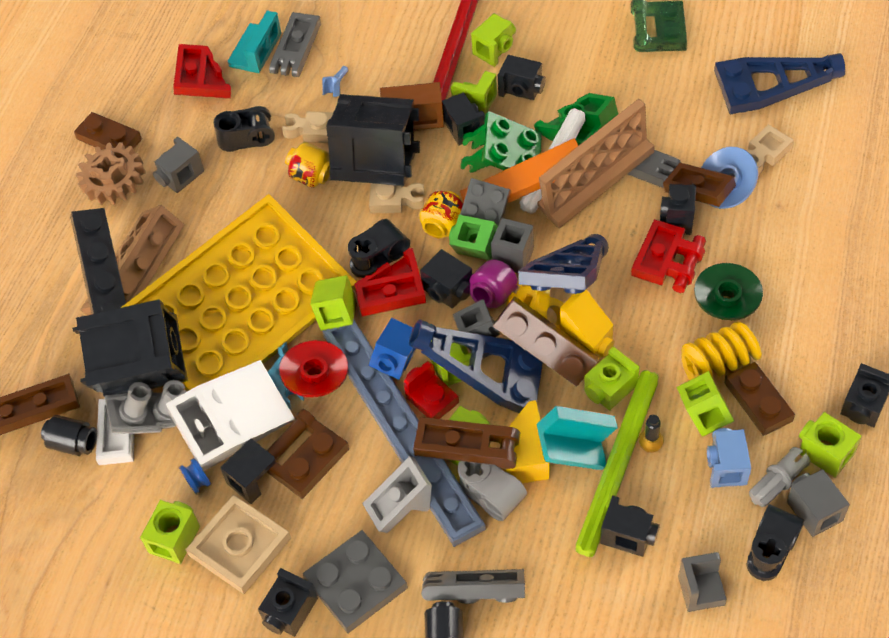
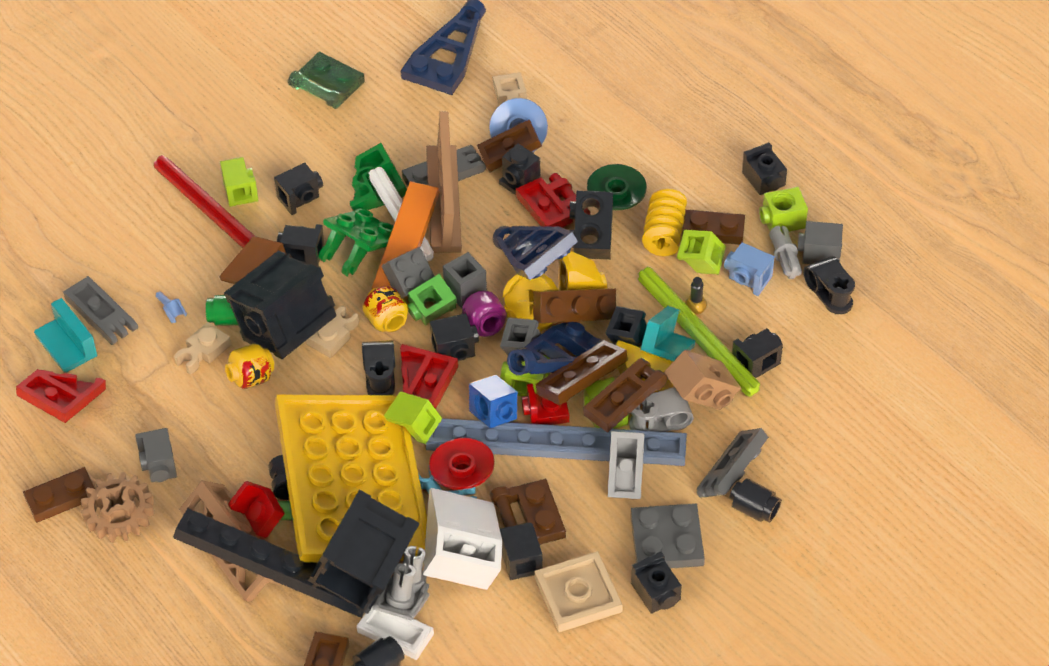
camera: 60 degrees left, 5 degrees down
(170, 544) = (531, 641): lime brick -> none
(171, 253) = (259, 507): none -> red bracket
(195, 475) = (492, 590): blue bush -> none
(241, 130) = (162, 392): black piece -> none
(466, 393) = (581, 372): none -> reddish brown plate
(481, 94) = (287, 215): lime panel -> none
(541, 497) = (702, 380): none -> medium nougat brick
(554, 392) = (627, 326): none -> black brick
(611, 379) = (631, 289): lime brick -> none
(665, 305) = (597, 225): none -> black brick
(701, 582) = (830, 341): dark grey panel -> none

